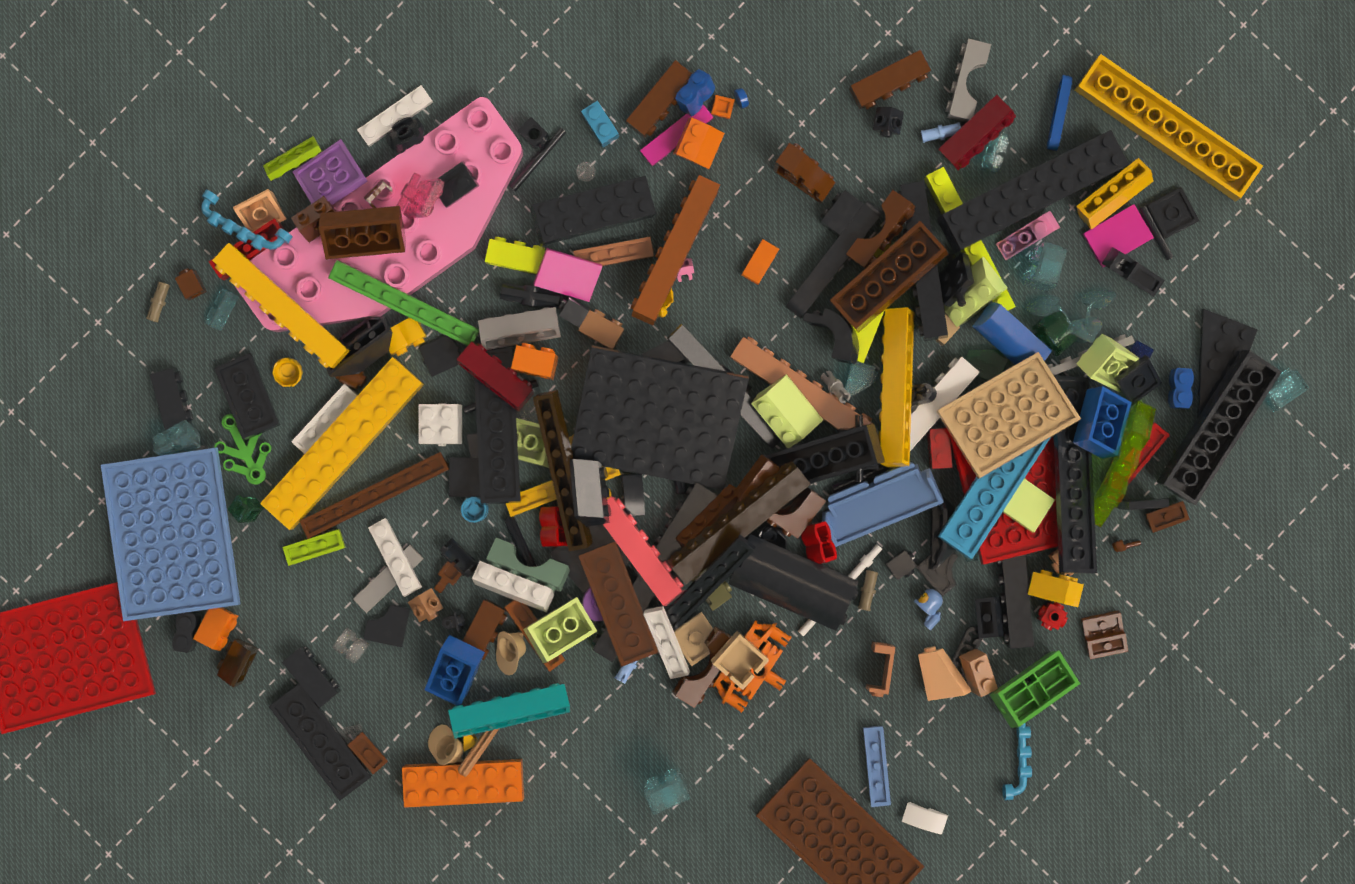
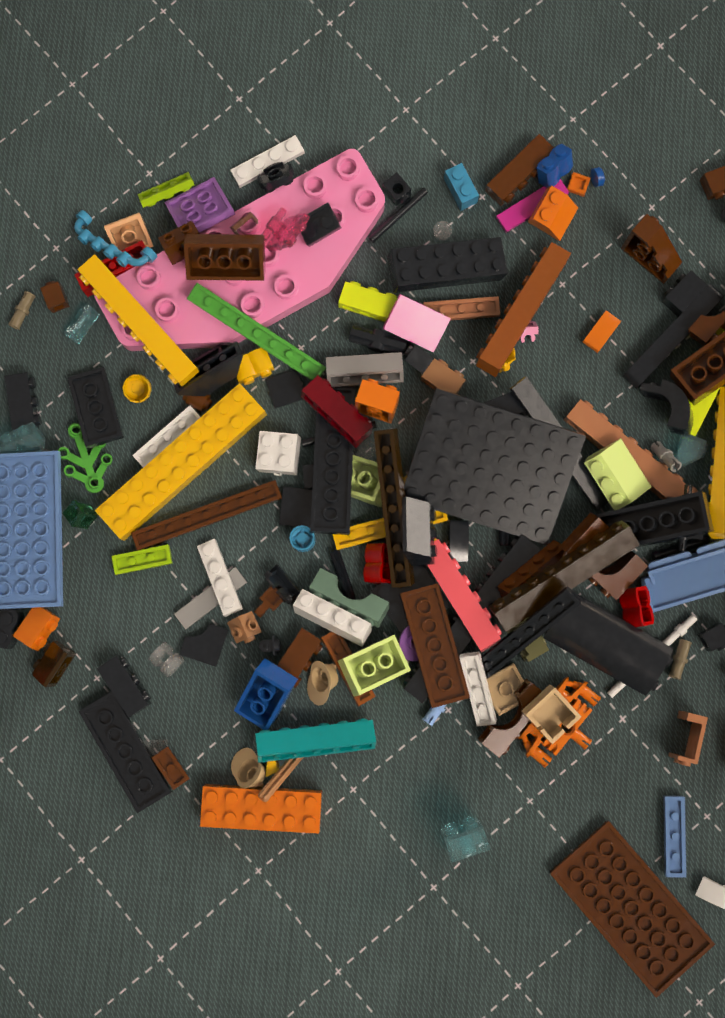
camera: 10 degrees right, 5 degrees down
(773, 535) = (592, 594): black hair -> none

